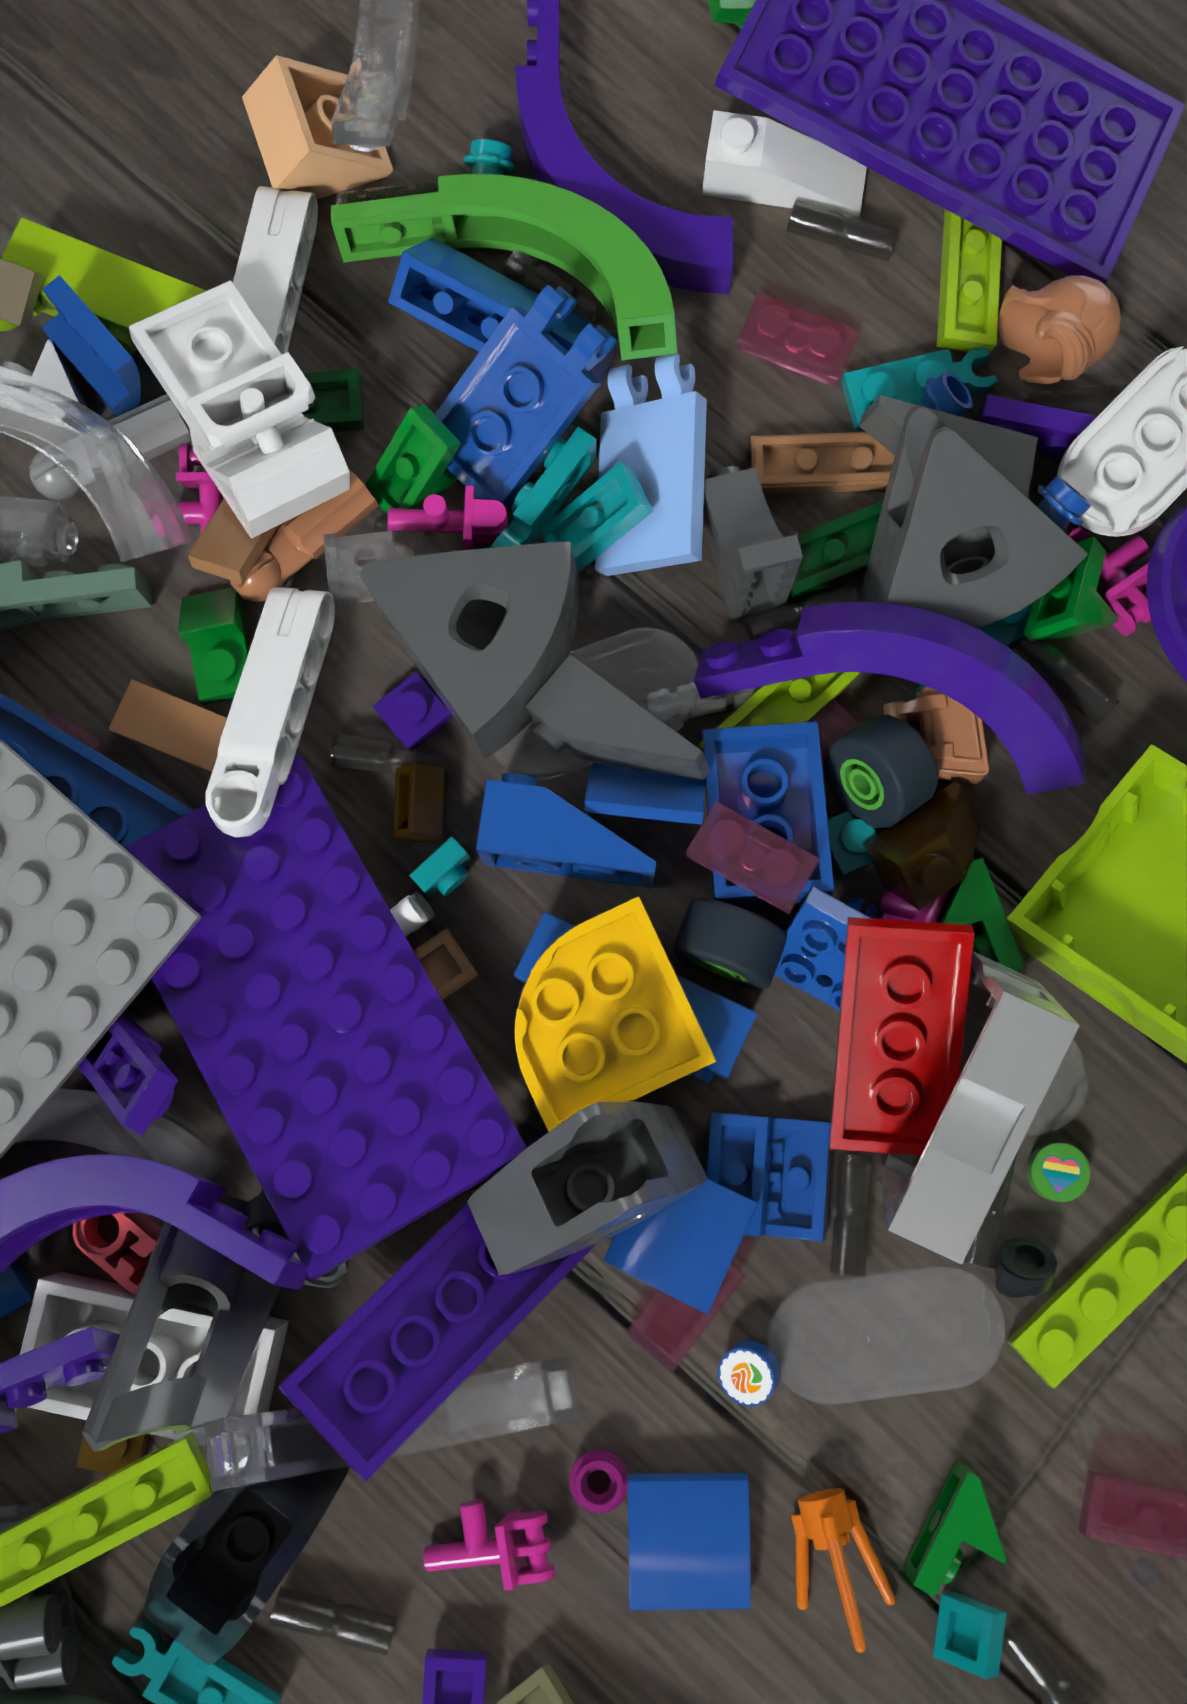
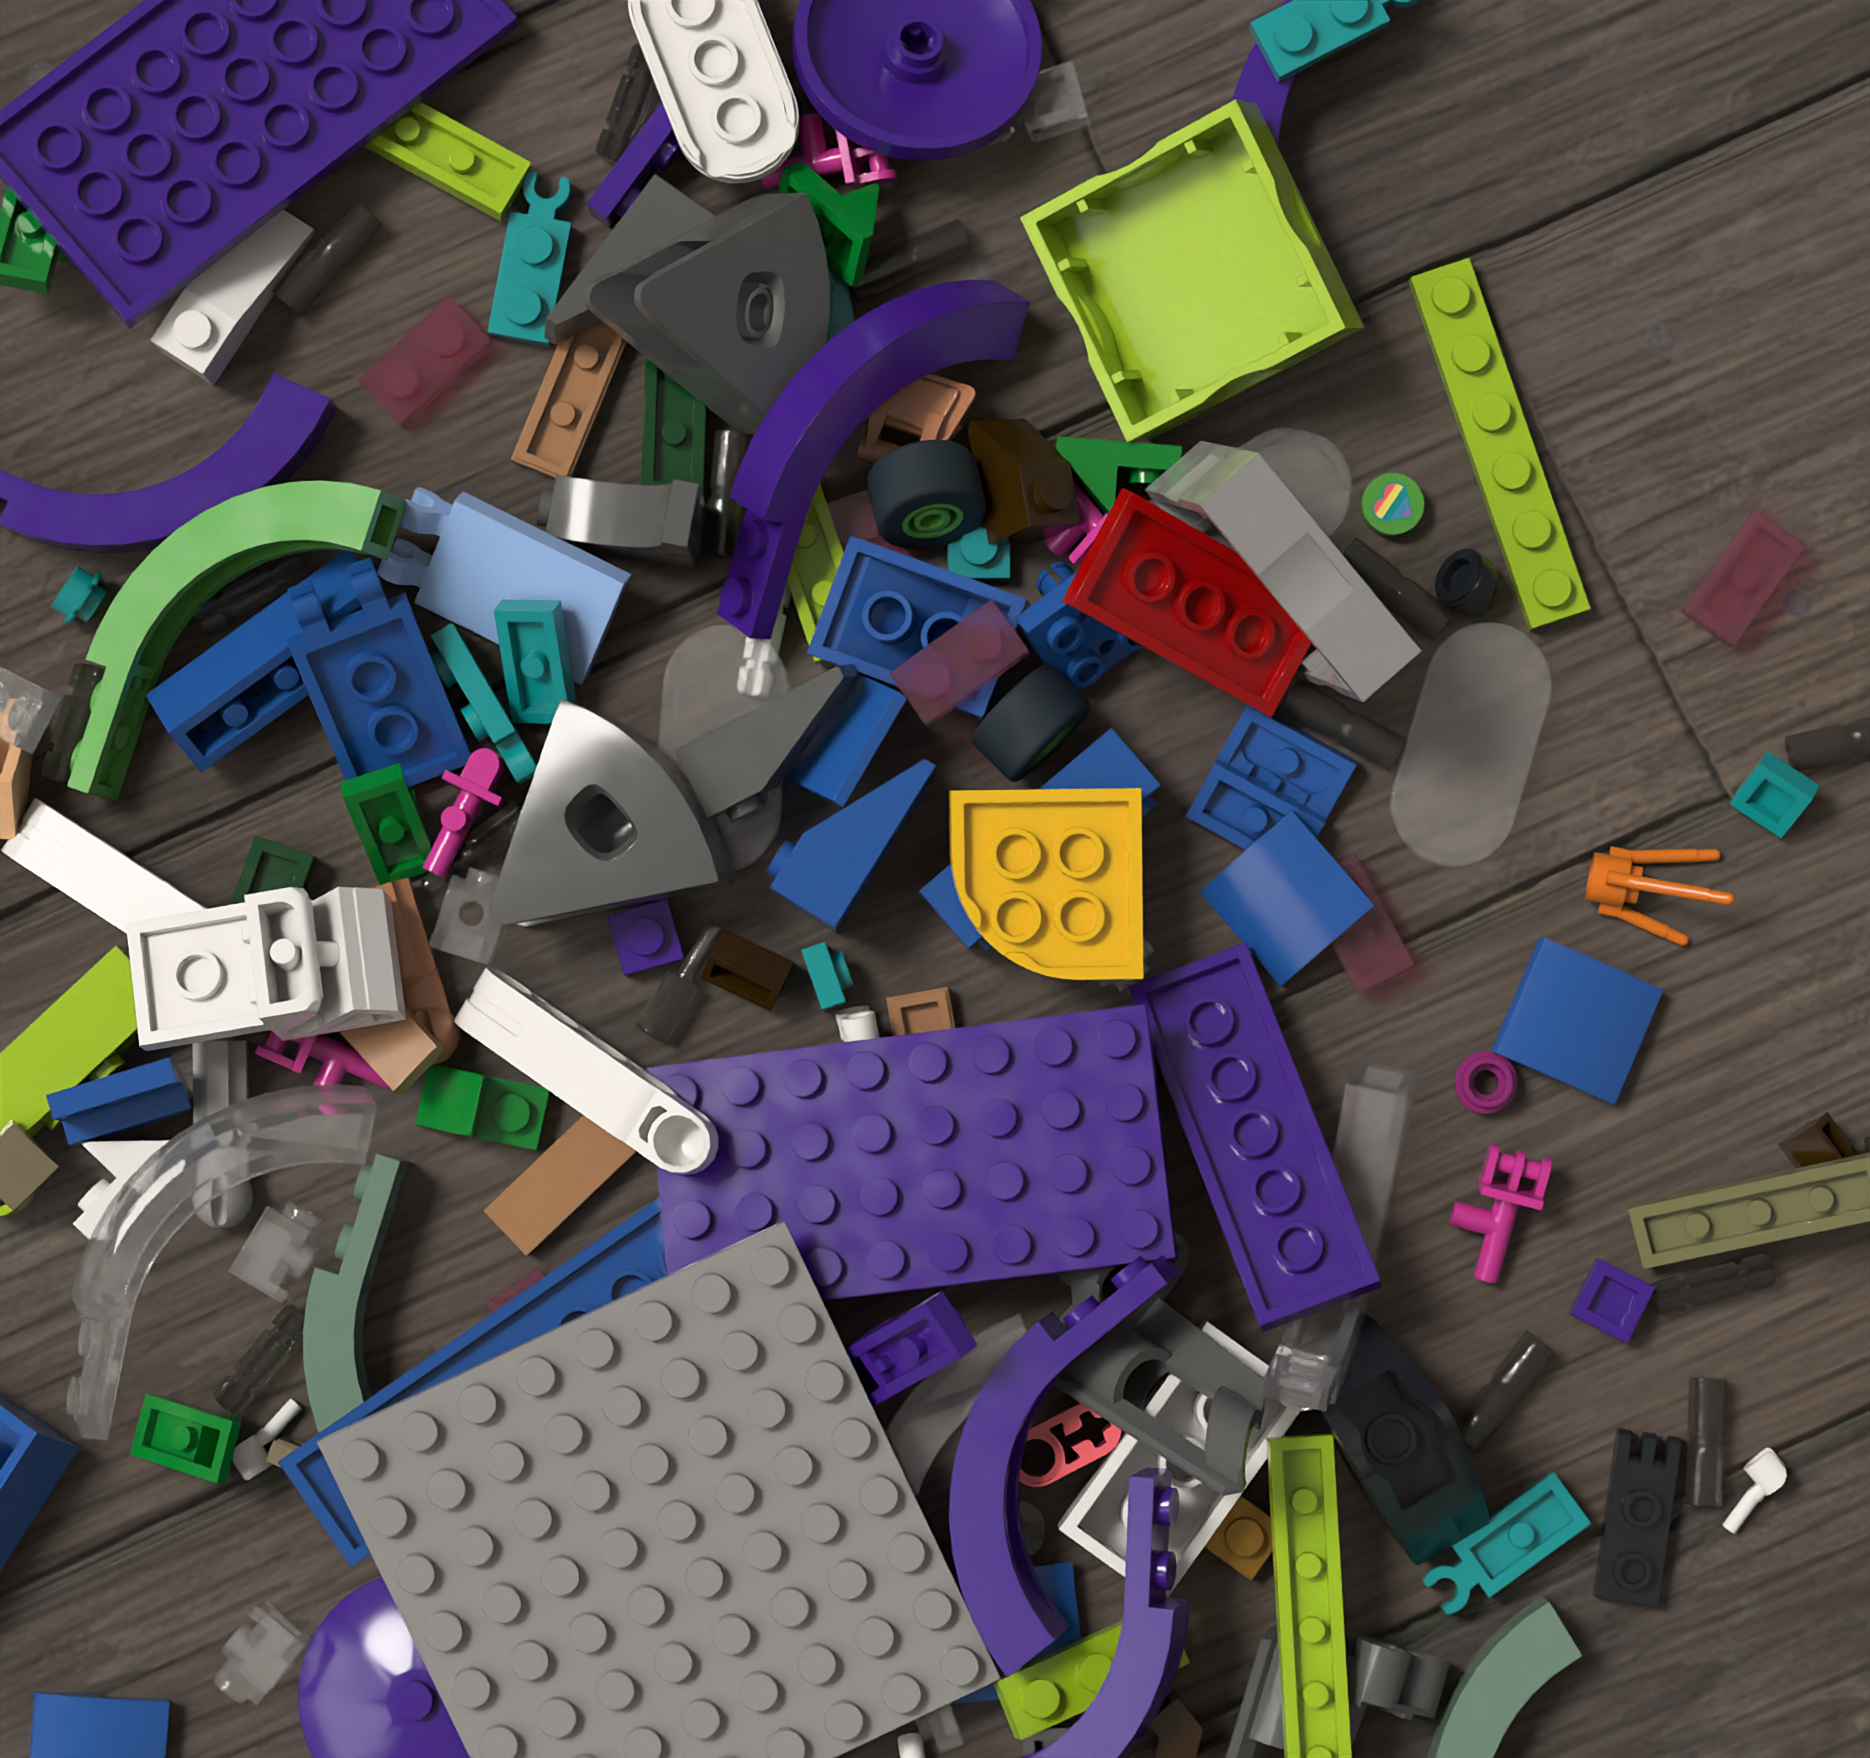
camera: 70 degrees left, 5 degrees up
(585, 1183) = (1202, 965): dark grey piece -> none
(749, 1373) = (1448, 892): tile -> none
(947, 394) = (569, 243): blue plate -> none
(956, 1516) = (1662, 753): green slope -> none
(1060, 327) = (547, 87): nougat hair -> none
(1062, 503) = (742, 191): blue plate -> none

